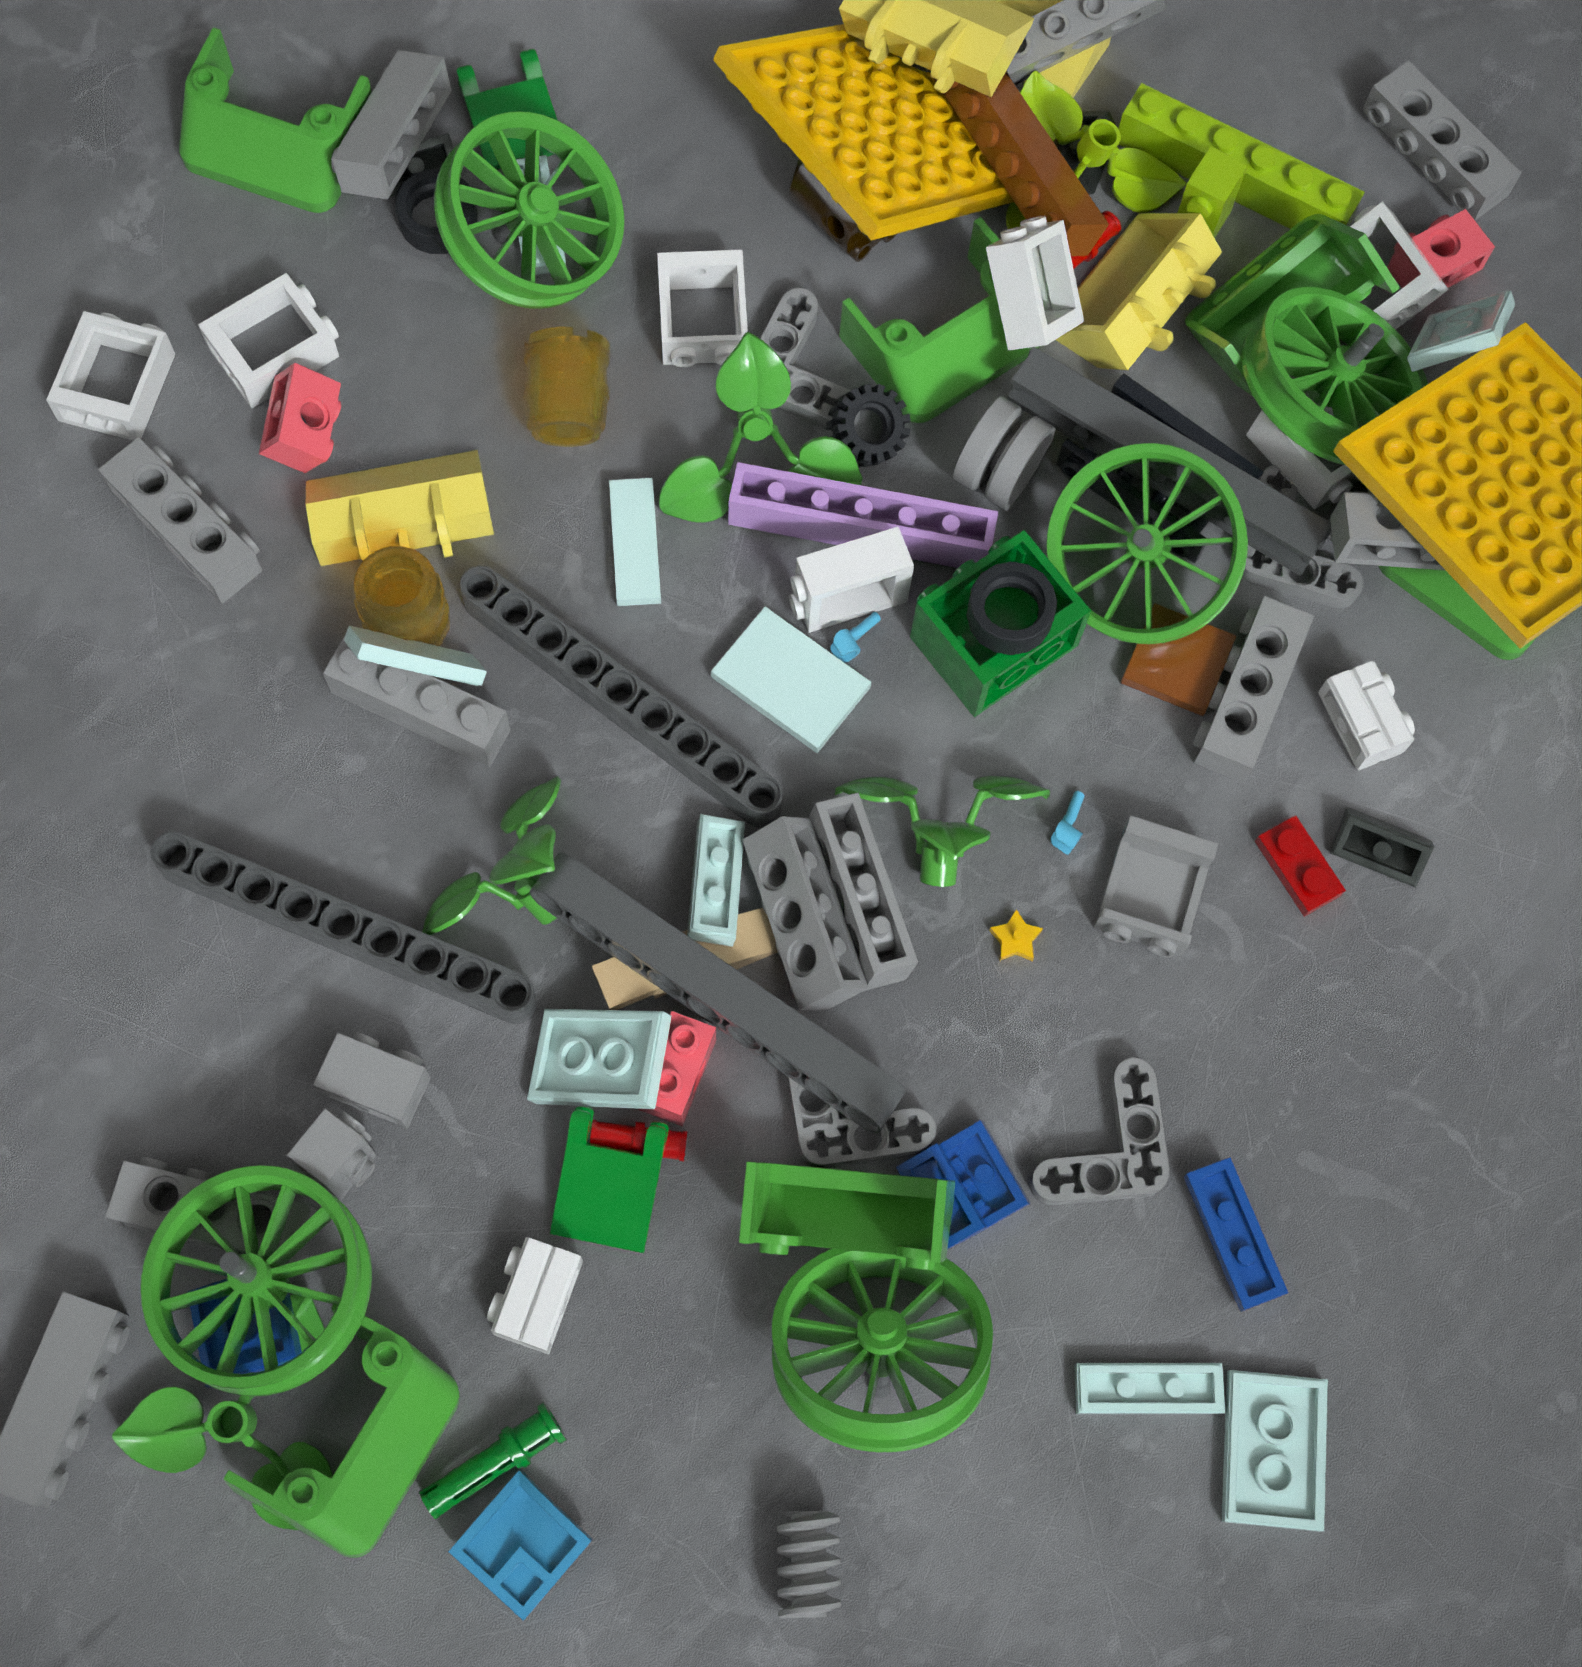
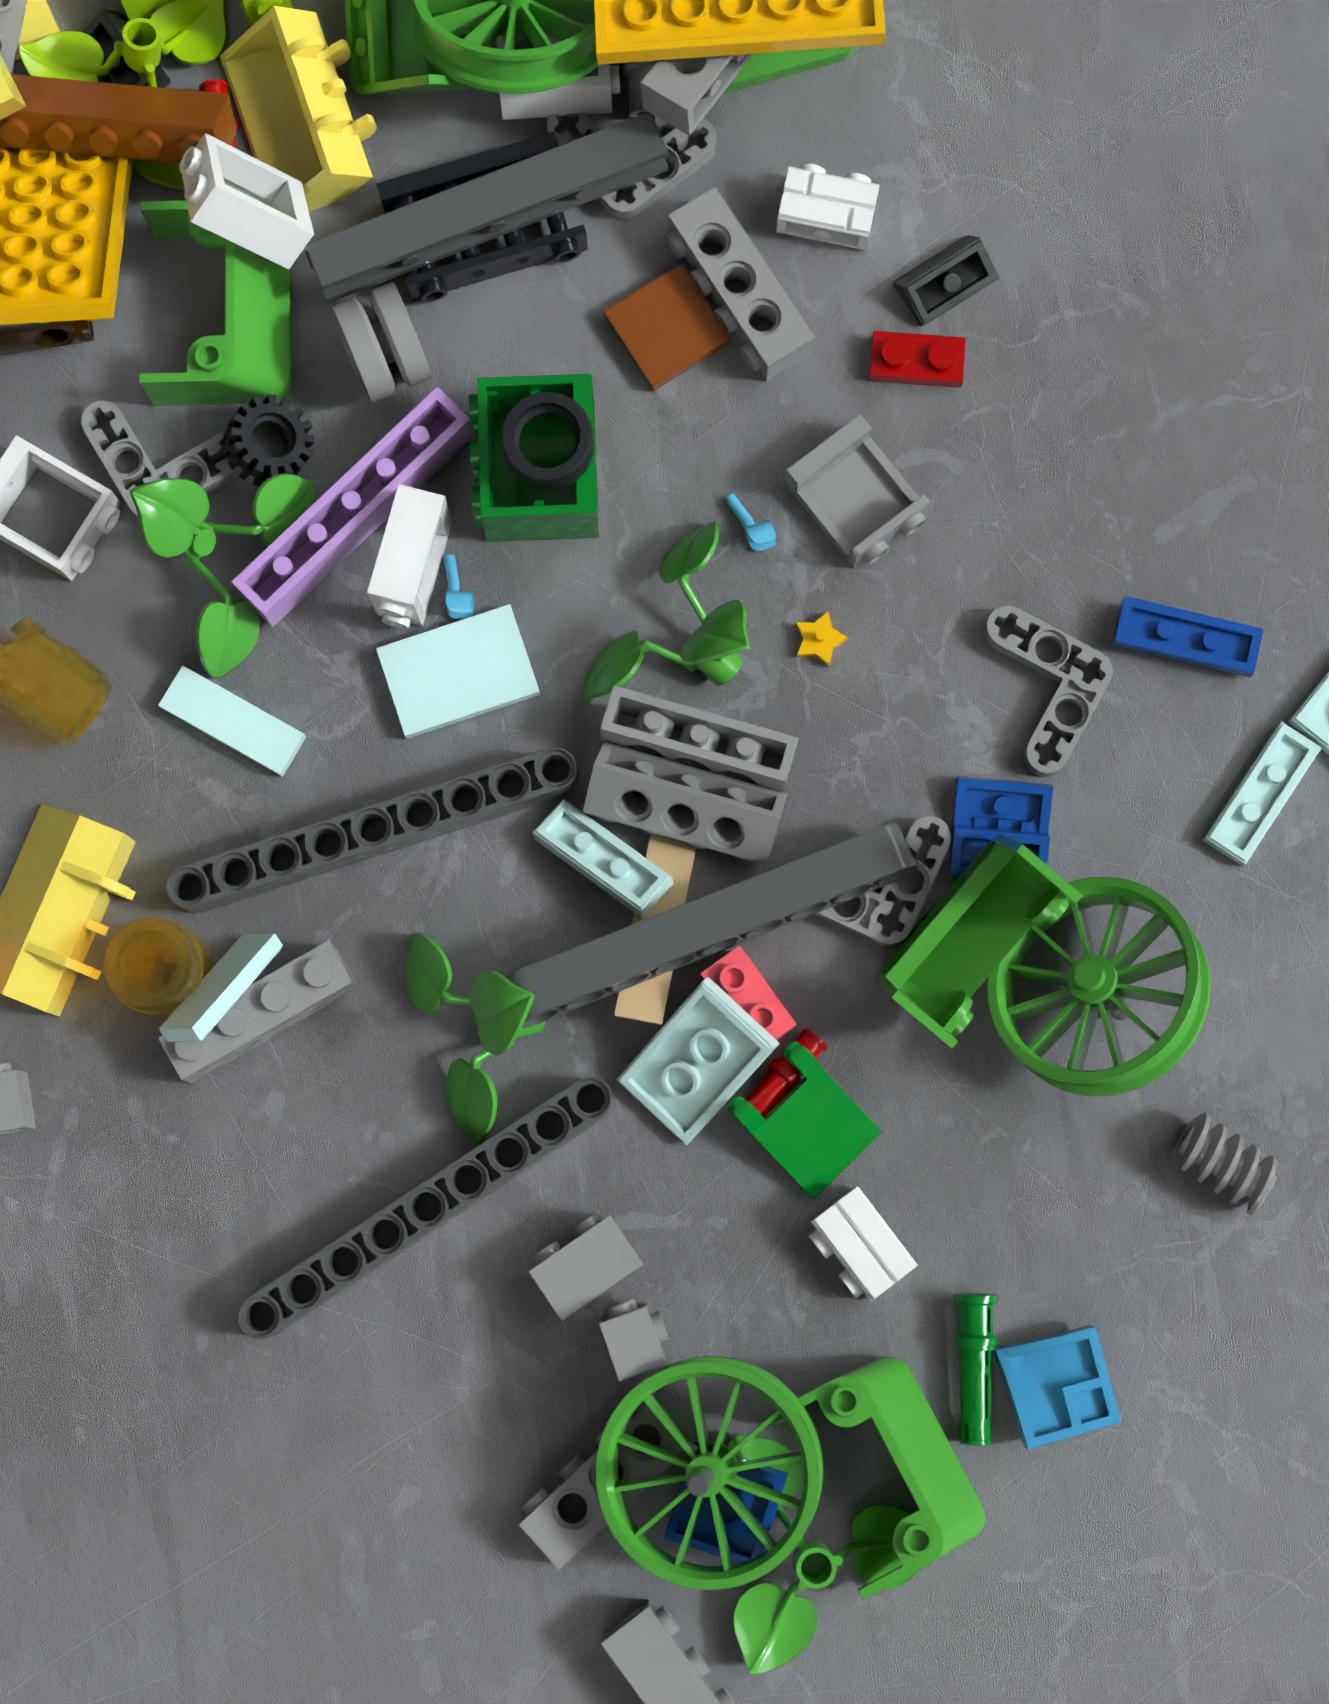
camera: 50 degrees left, 10 degrees up
(1148, 543) = (558, 279): bright green wheel -> none

